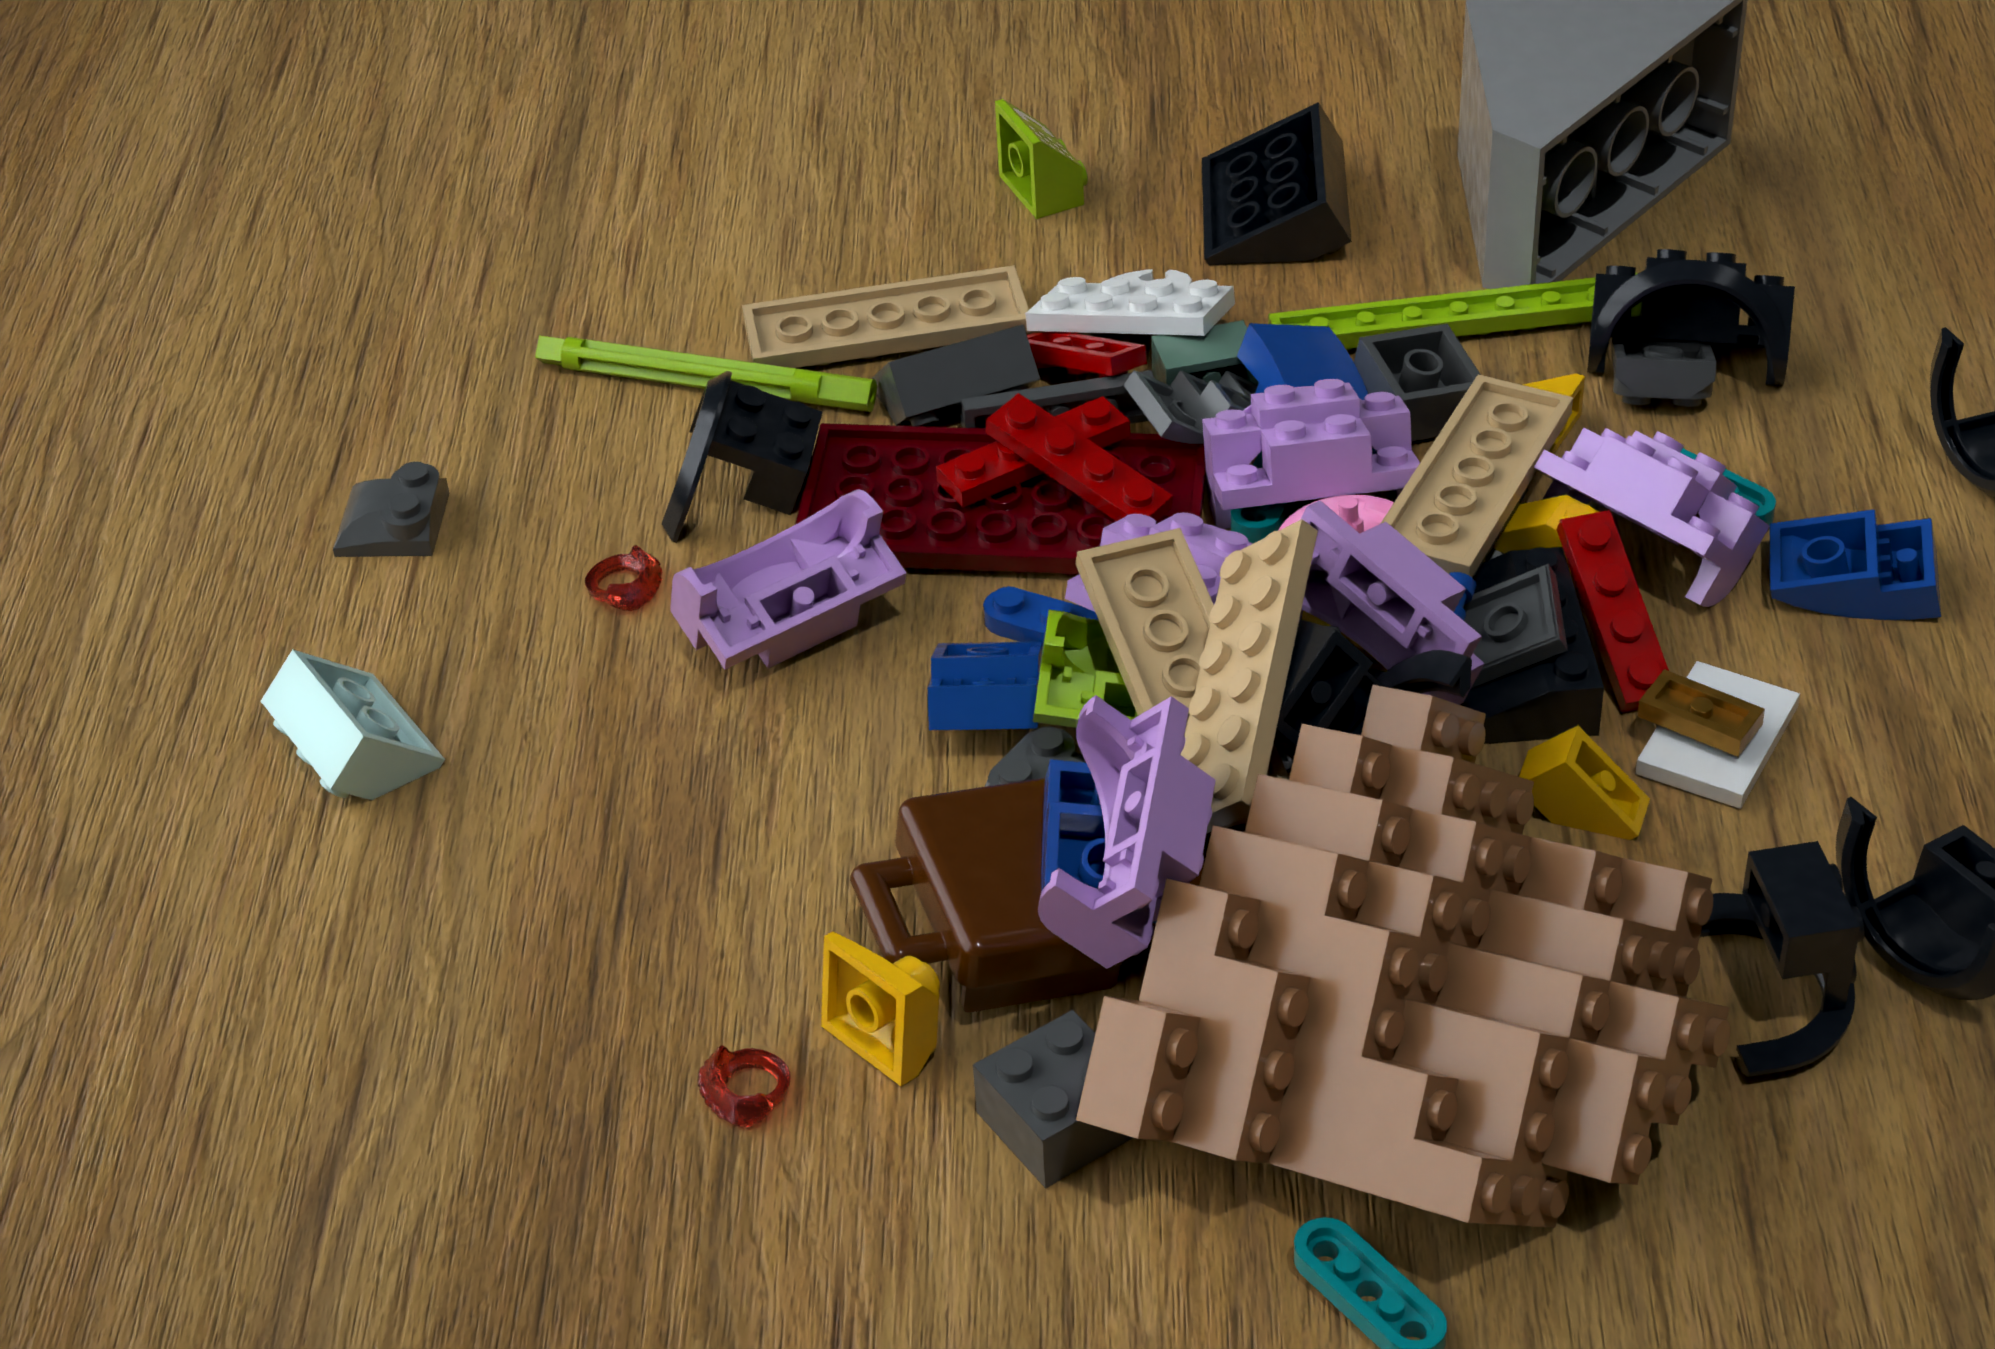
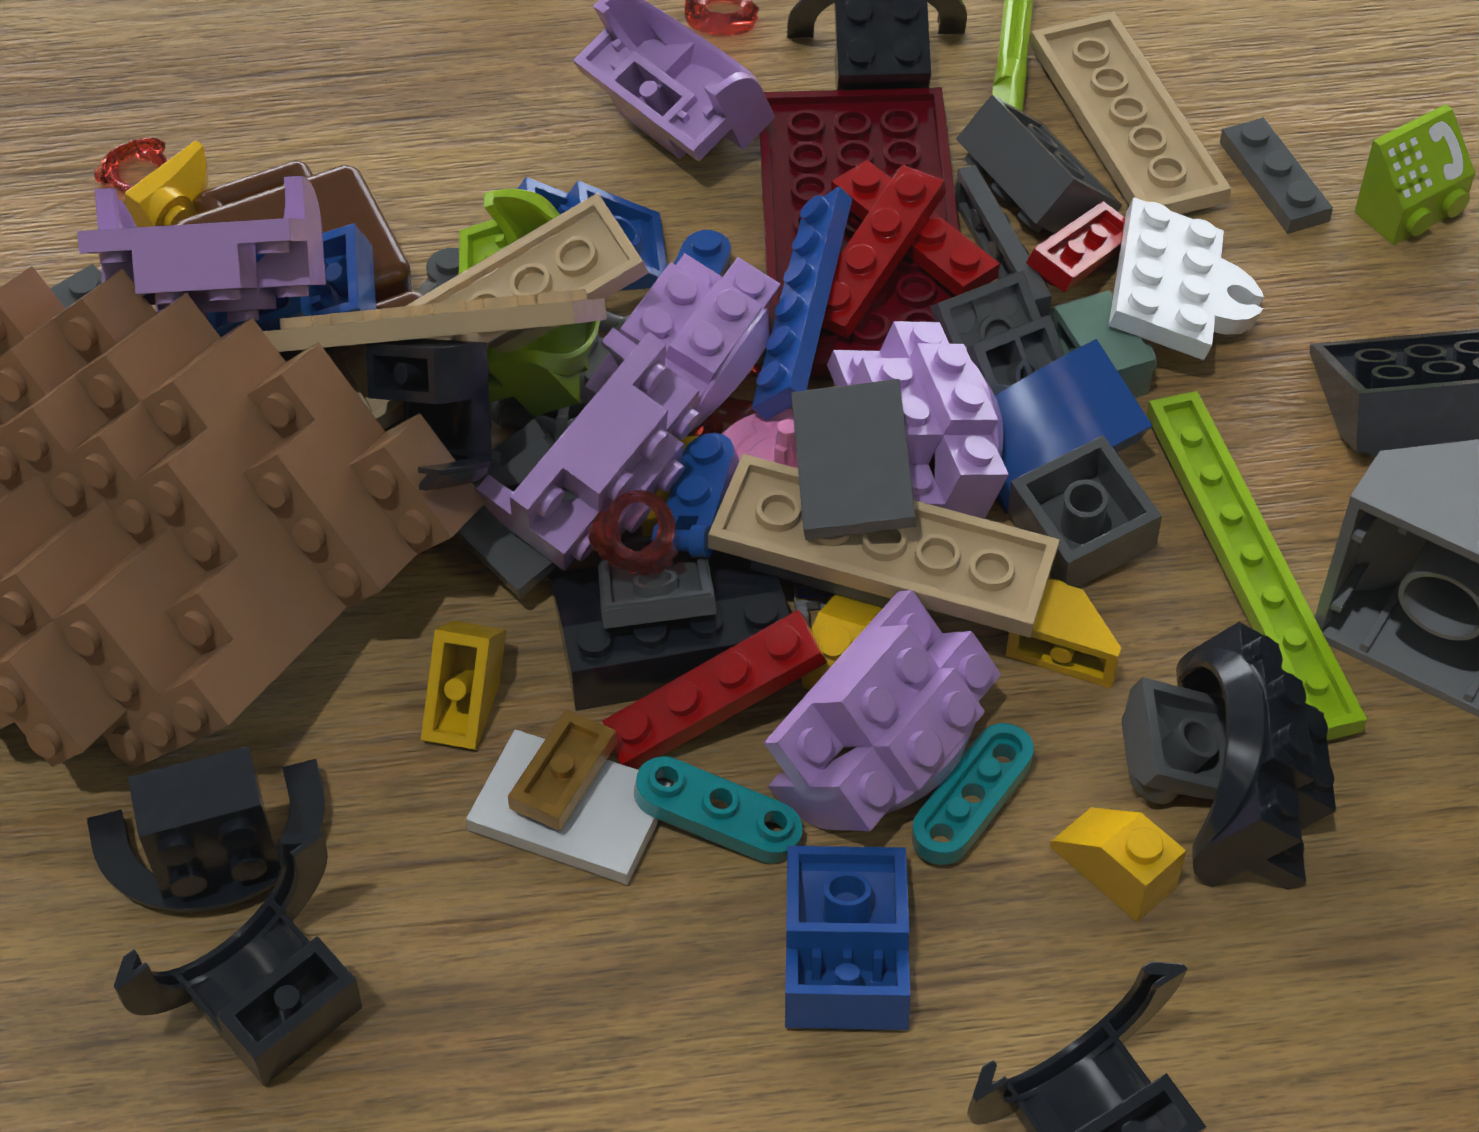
camera: 80 degrees right, 10 degrees up
(985, 249) = (1276, 175): none -> dark grey plate
(1098, 502) = (802, 303): none -> blue plate
(1403, 457) = (853, 459): none -> dark grey tile
(1482, 611) = (606, 536): none -> clear red piece
(1729, 632) = (735, 827): none -> teal plate
(1772, 411) = (1123, 857): none -> yellow slope

